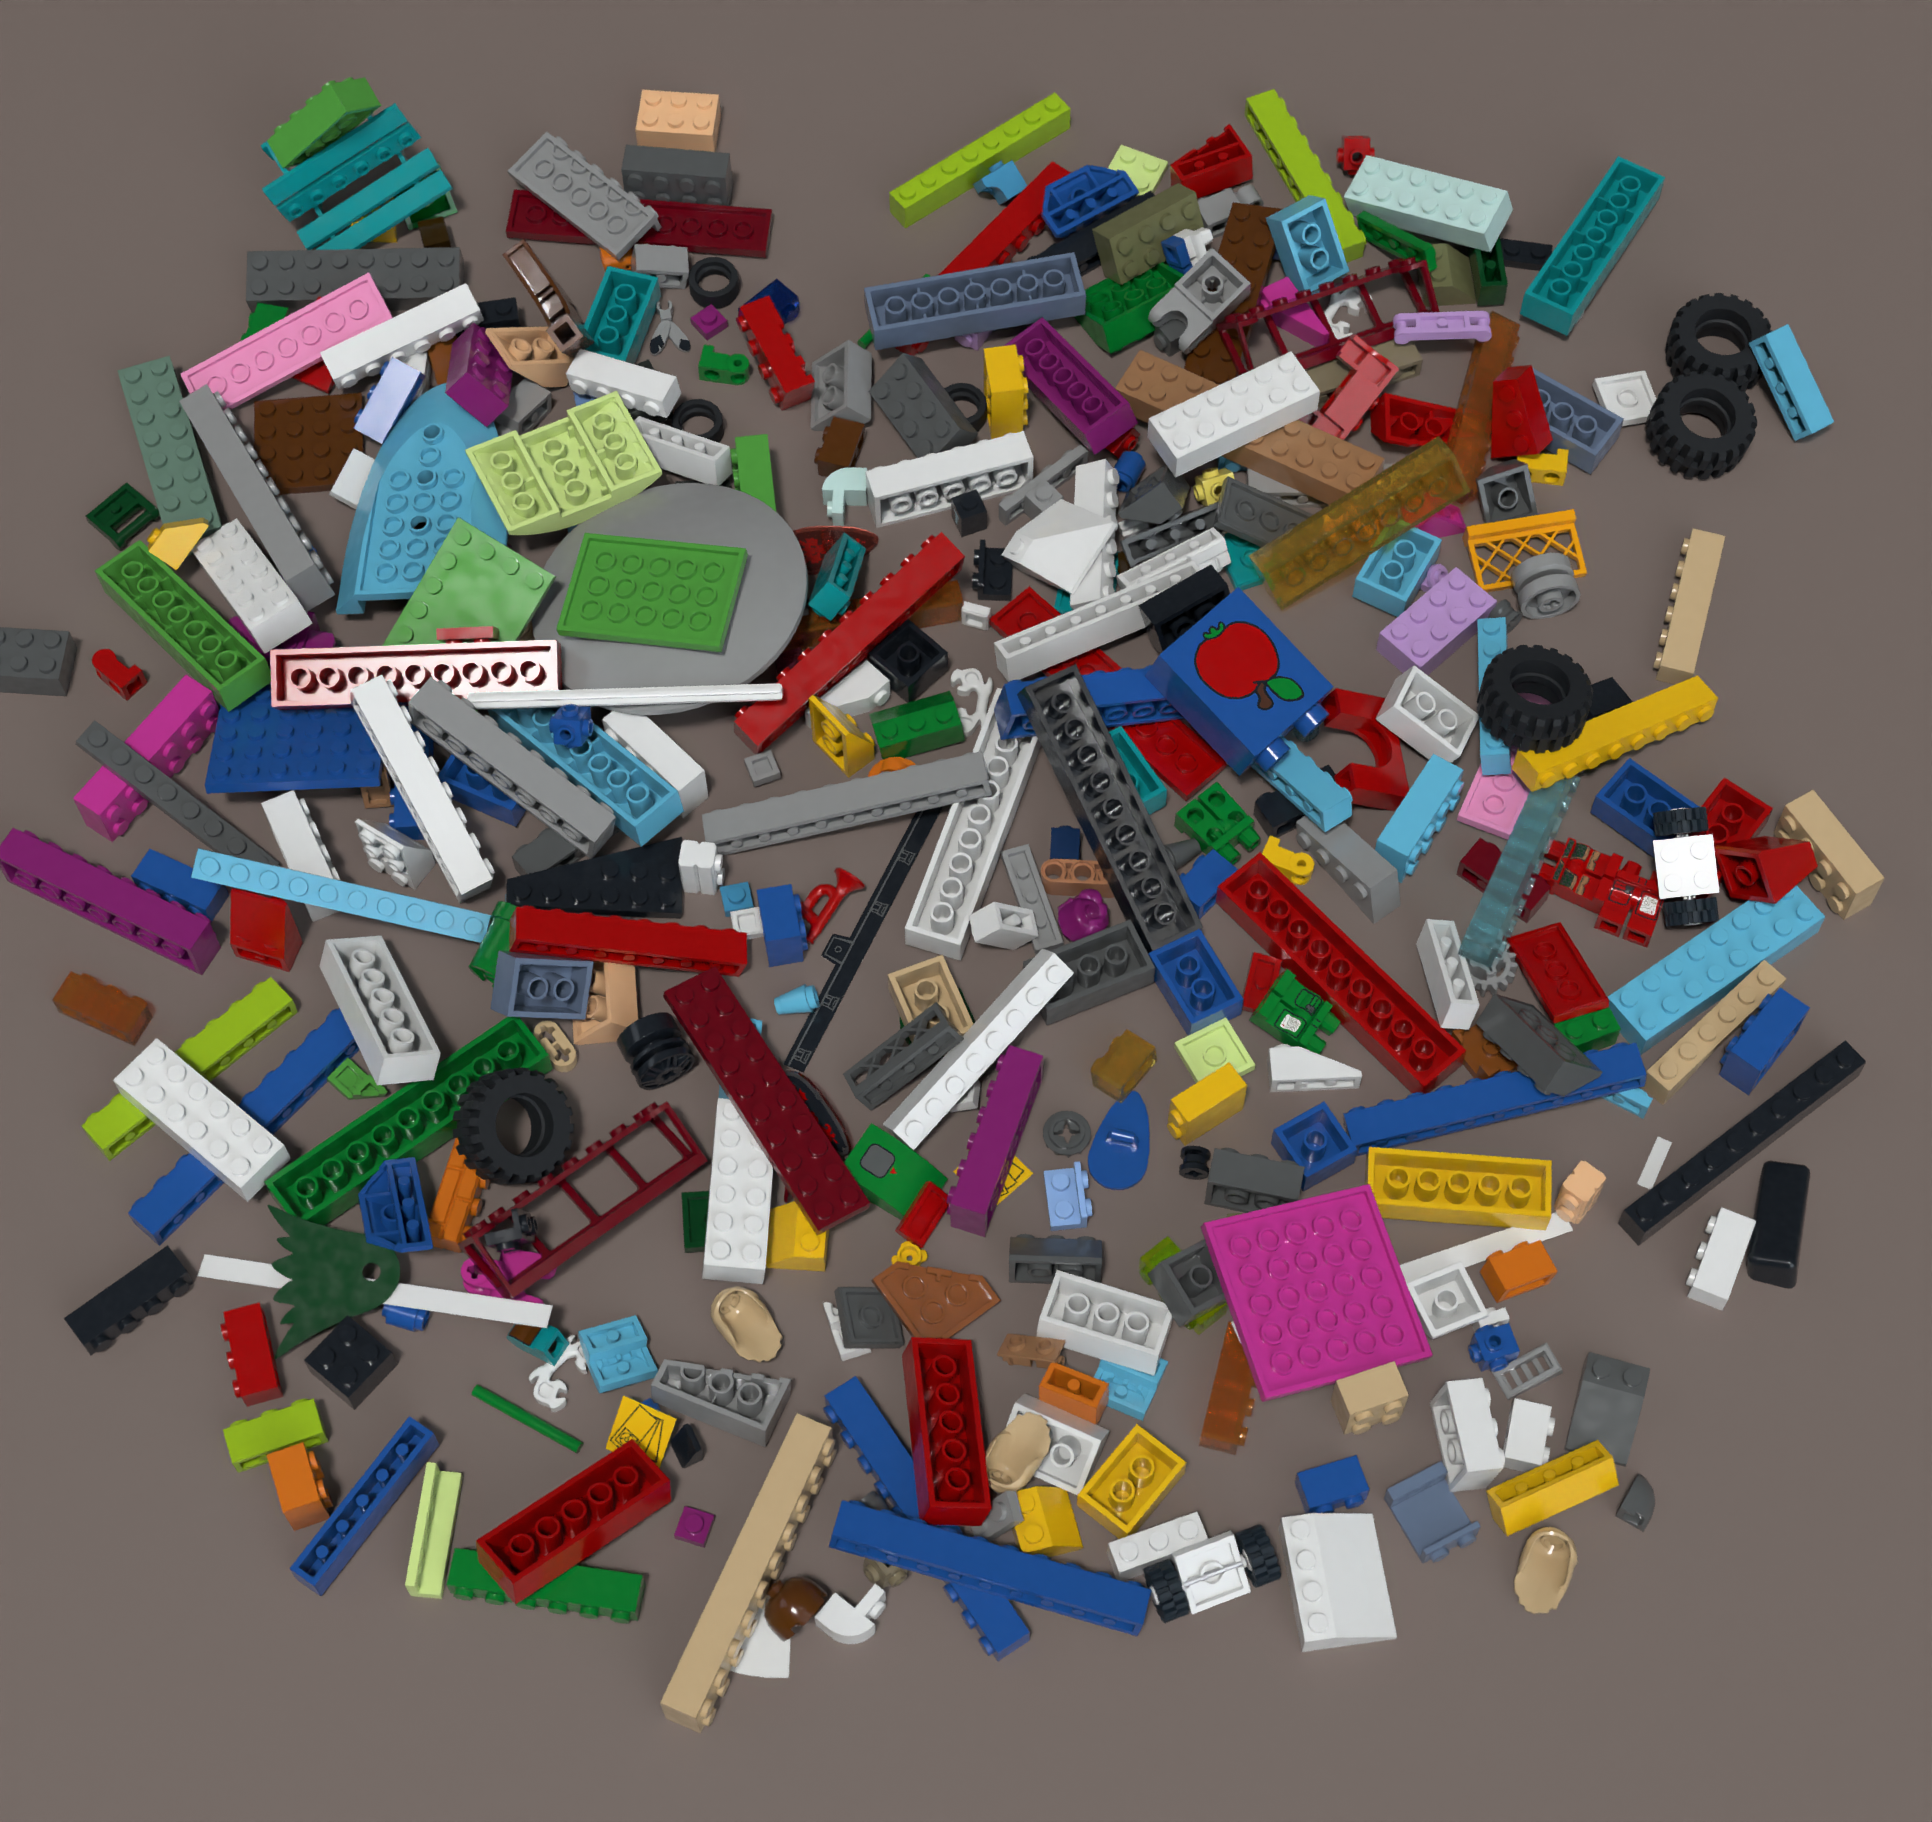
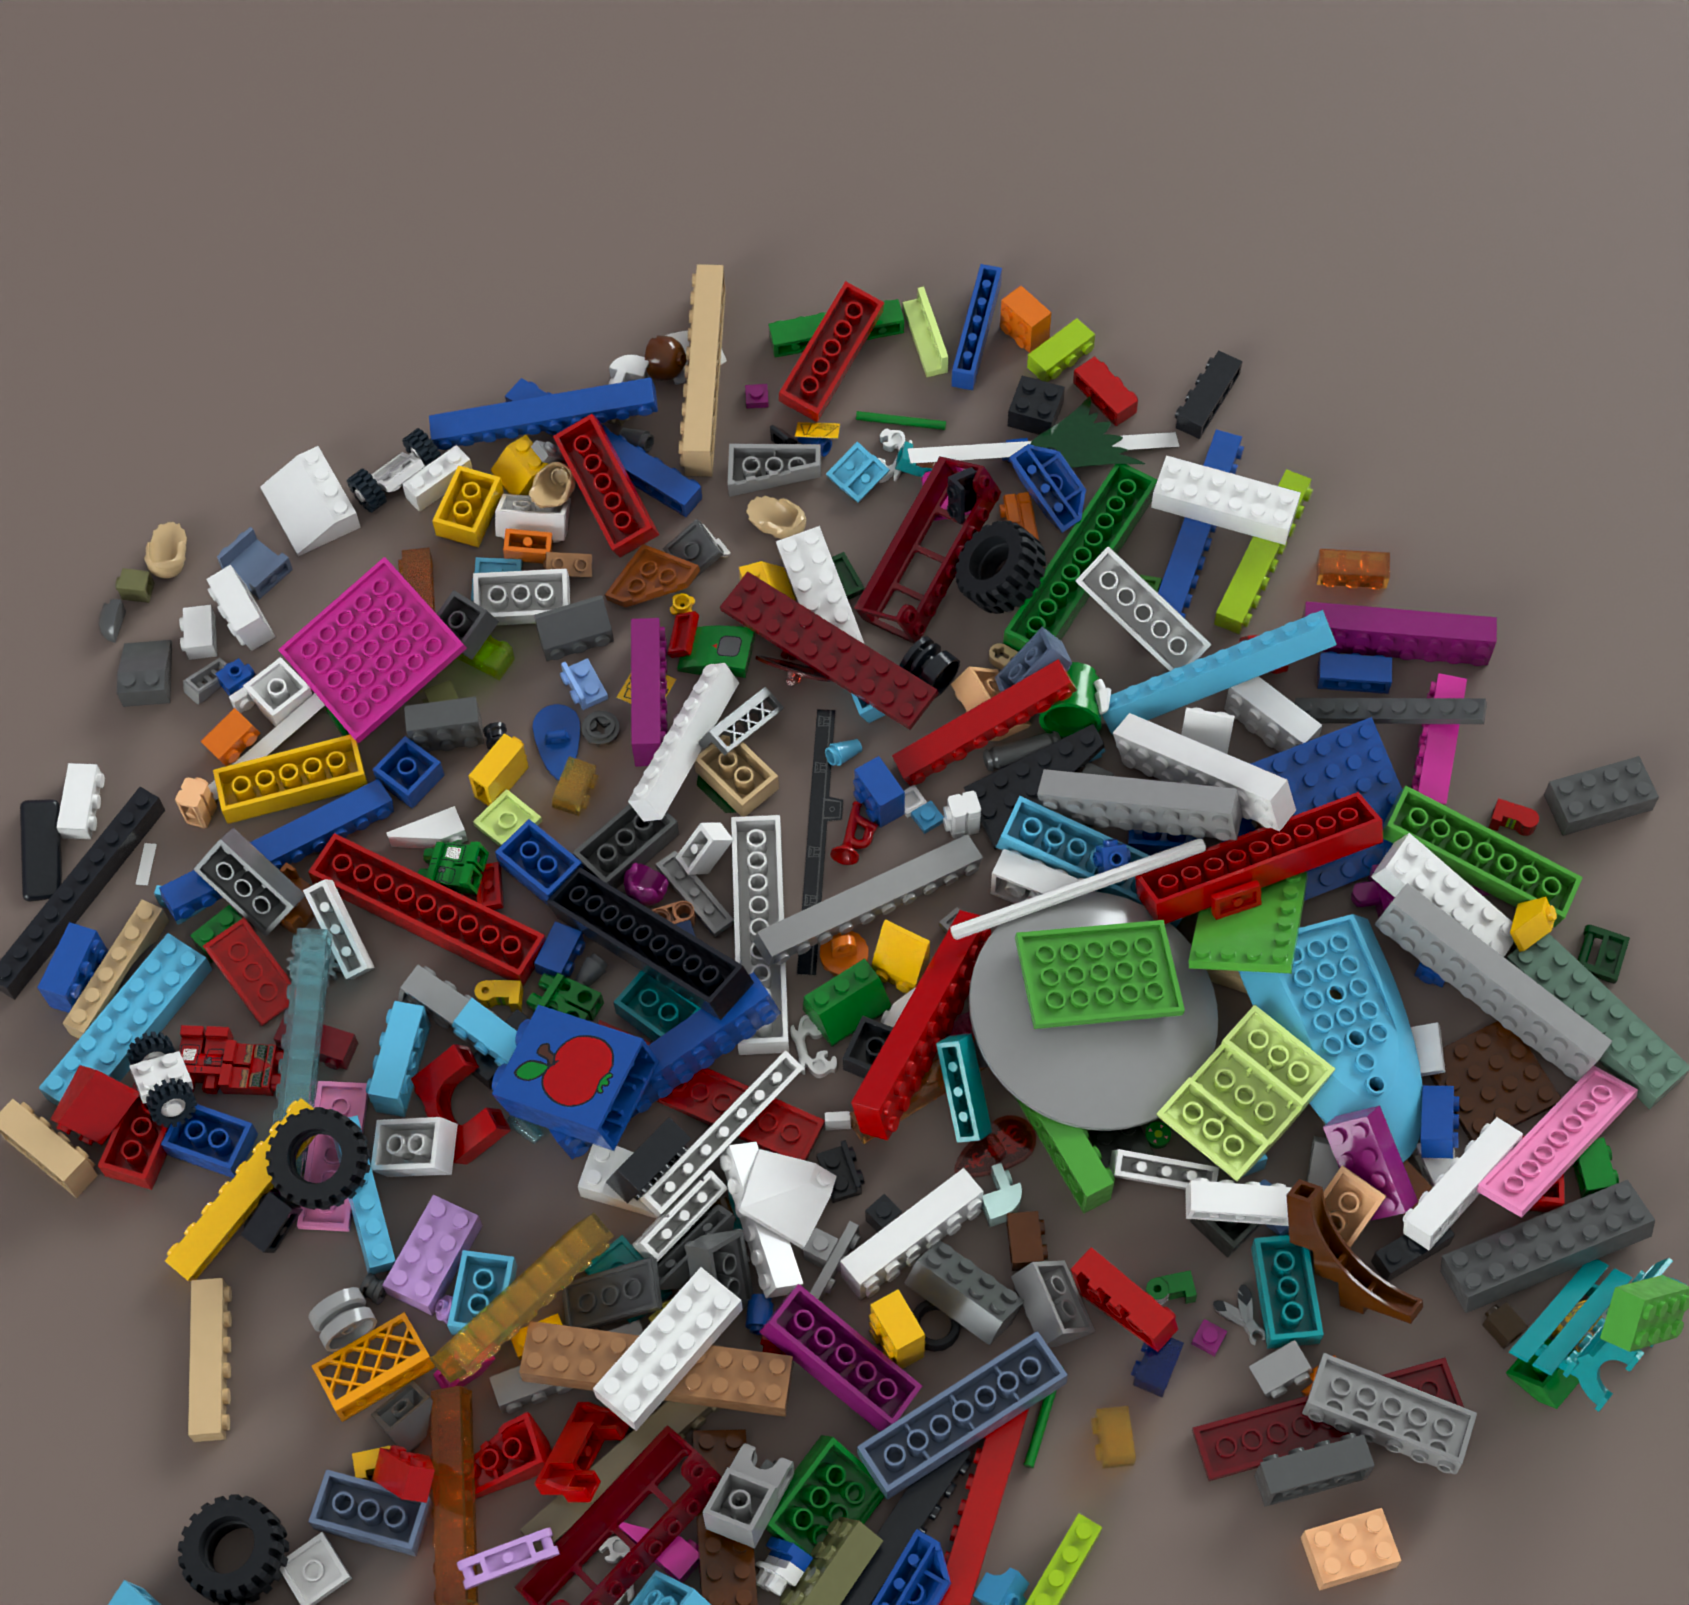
camera: 160 degrees right, 0 degrees up
(481, 925) = (1102, 696): none -> white bar
(702, 408) = (1151, 1235): black tyre -> none
(708, 267) = (1231, 1358): black tyre -> none
(840, 268) = (1114, 1437): none -> clear yellow brick
(1332, 1486) = (329, 555): blue brick -> none
(1369, 1398) = (310, 602): tan brick -> none
(1552, 1487) = (171, 600): yellow brick -> none
(1598, 1537) = (135, 585): none -> olive brick

